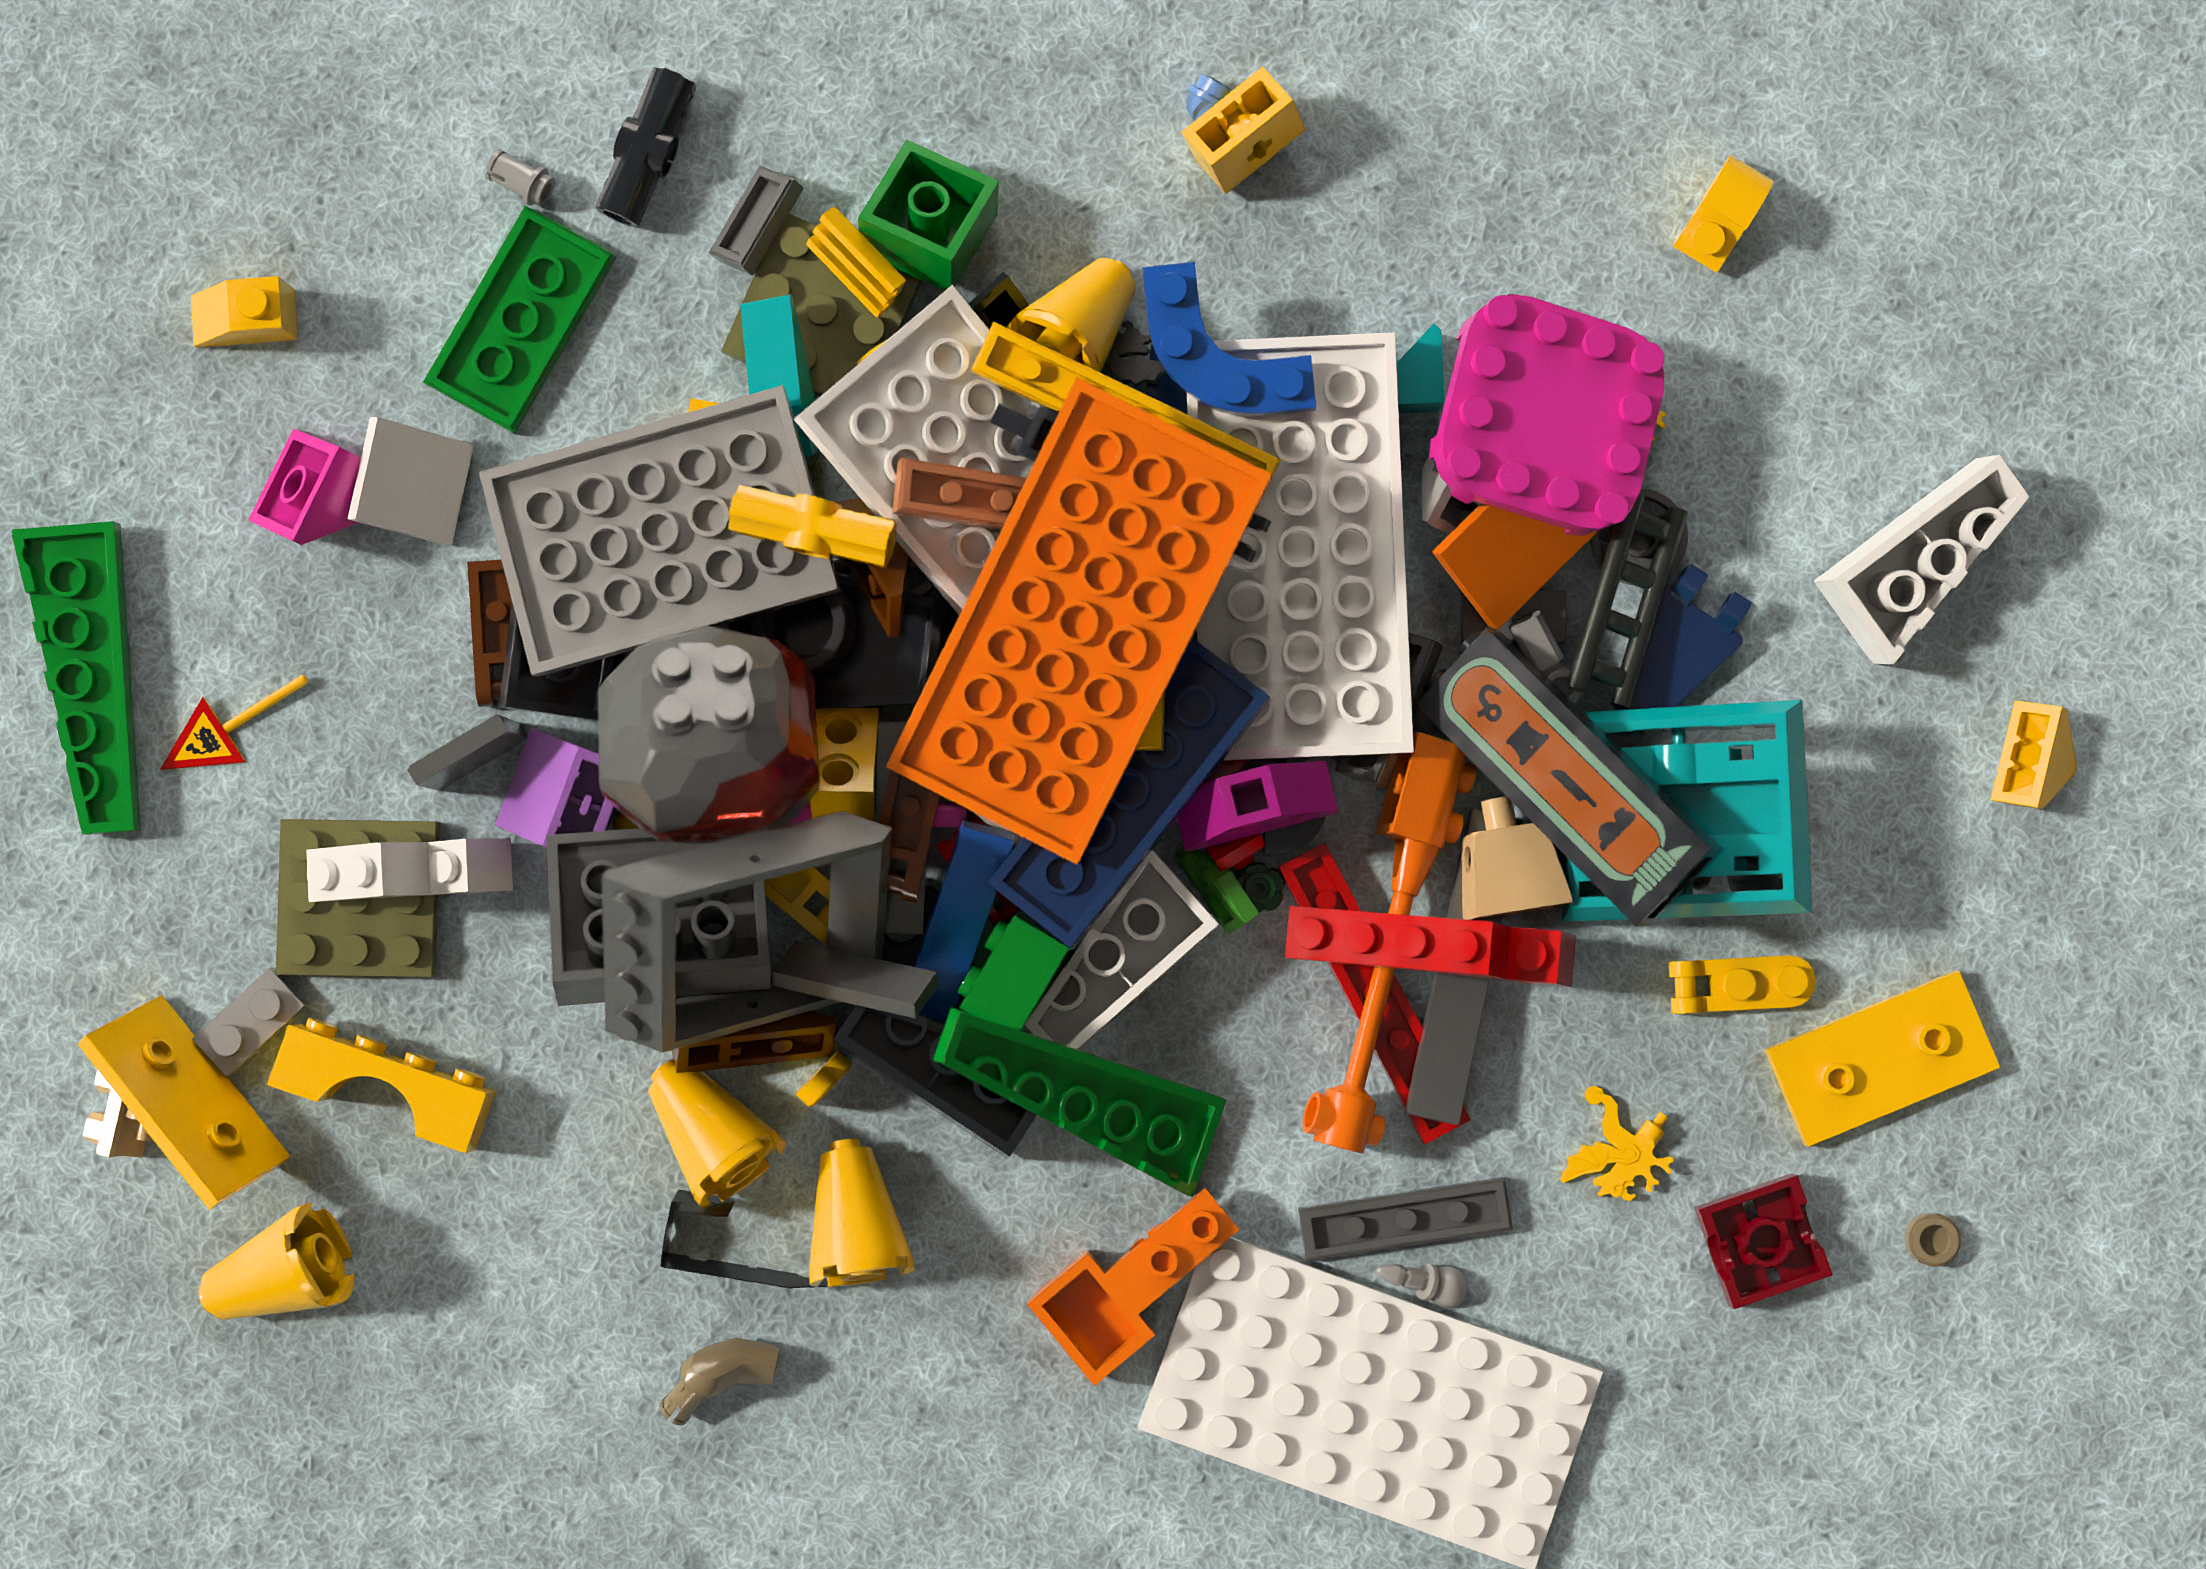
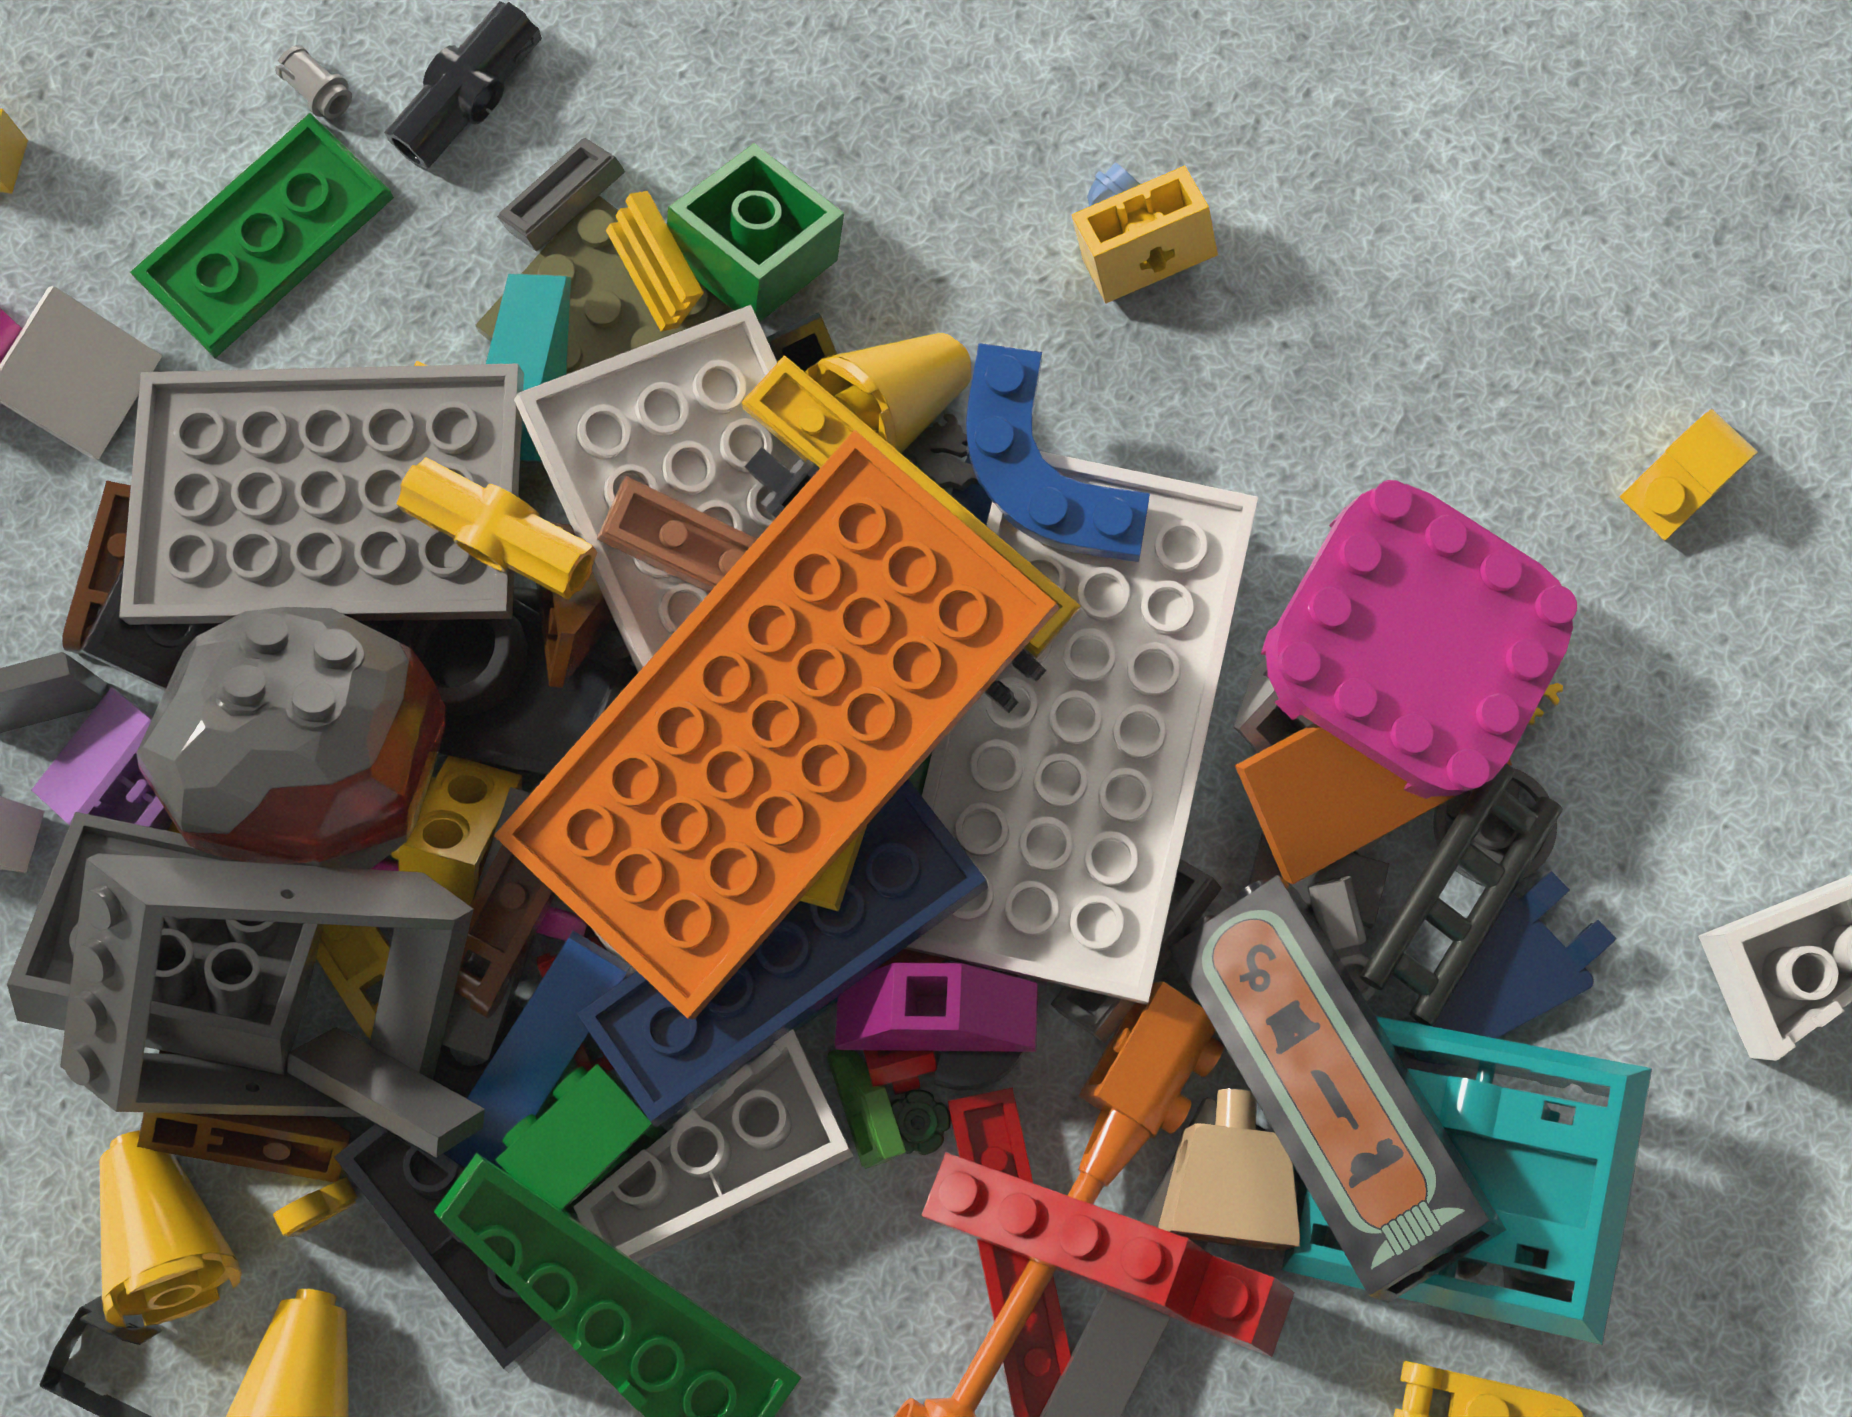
camera: 20 degrees right, 10 degrees down
(1421, 375) = (1276, 562): teal slope -> none

